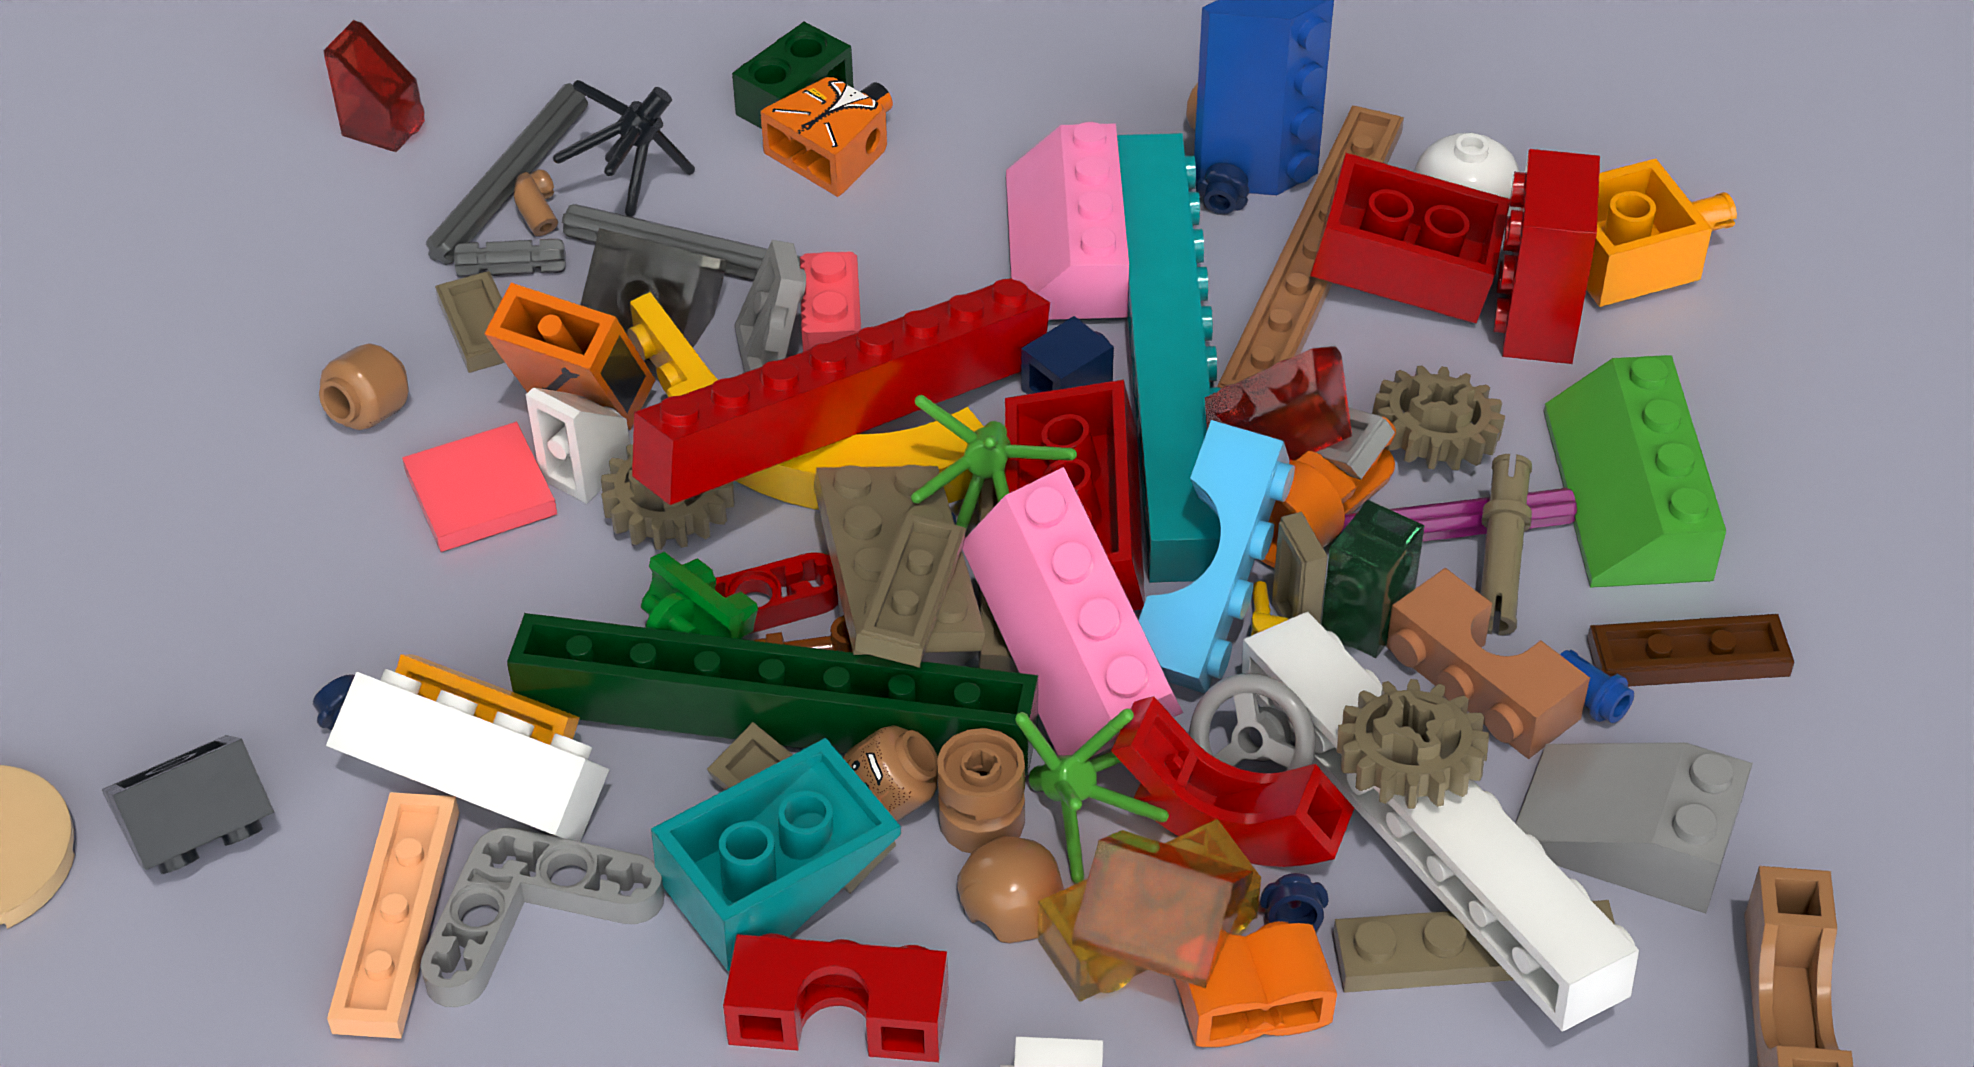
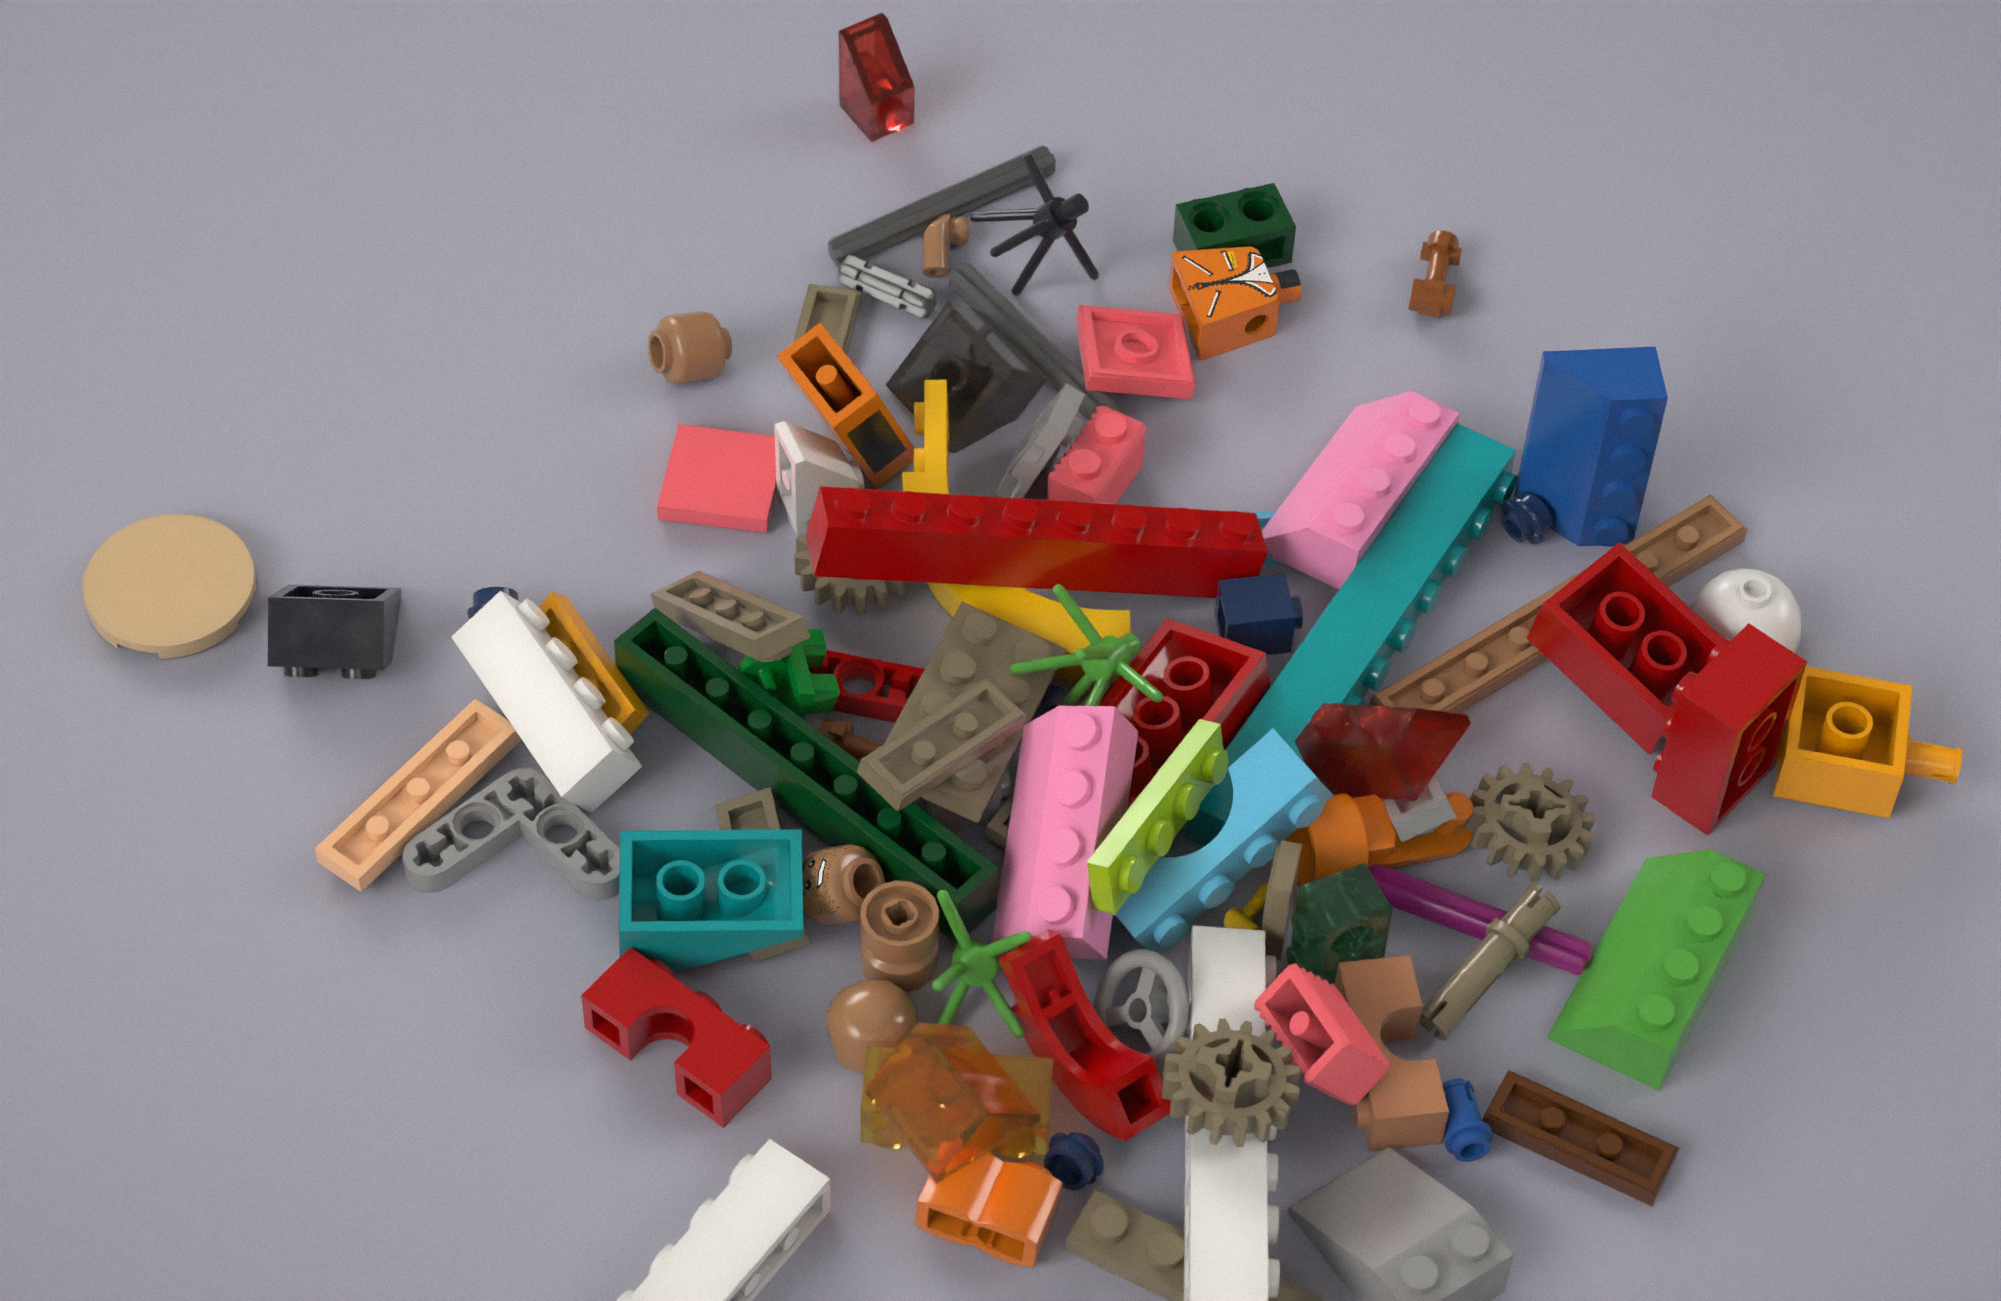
camera: 30 degrees right, 5 degrees up
(608, 584) = (732, 616): none -> dark tan plate
(783, 207) = (1134, 352): none -> coral tile
(997, 56) = (1433, 295): none -> dark orange bar
(1157, 566) = (1157, 817): none -> lime plate
(1465, 666) = (1323, 1035): none -> coral brick

